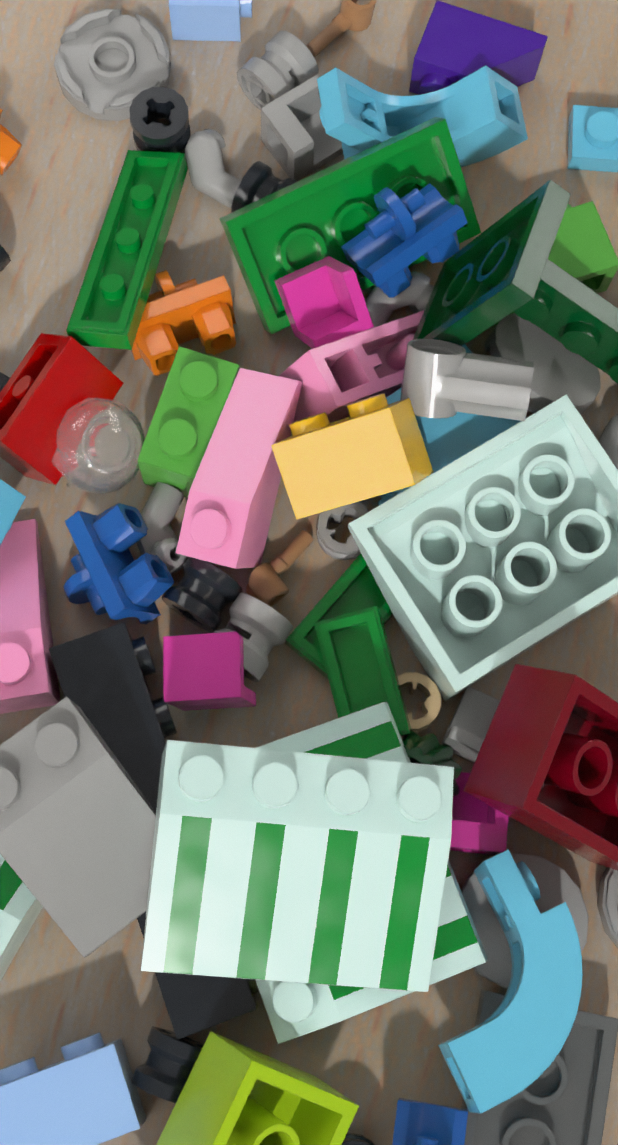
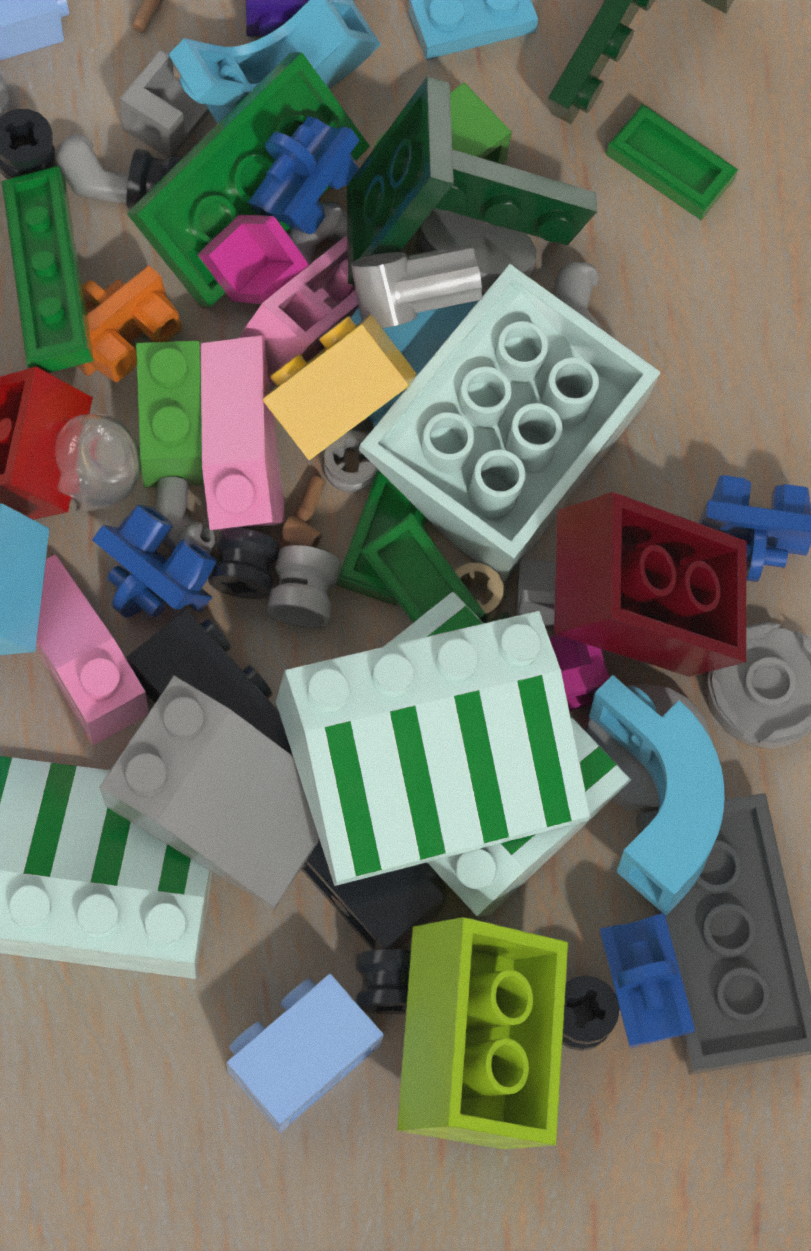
camera: 25 degrees left, 5 degrees down
(205, 672) = (280, 628): dark pink panel -> none
(279, 70) = (118, 60): light grey wheel -> none

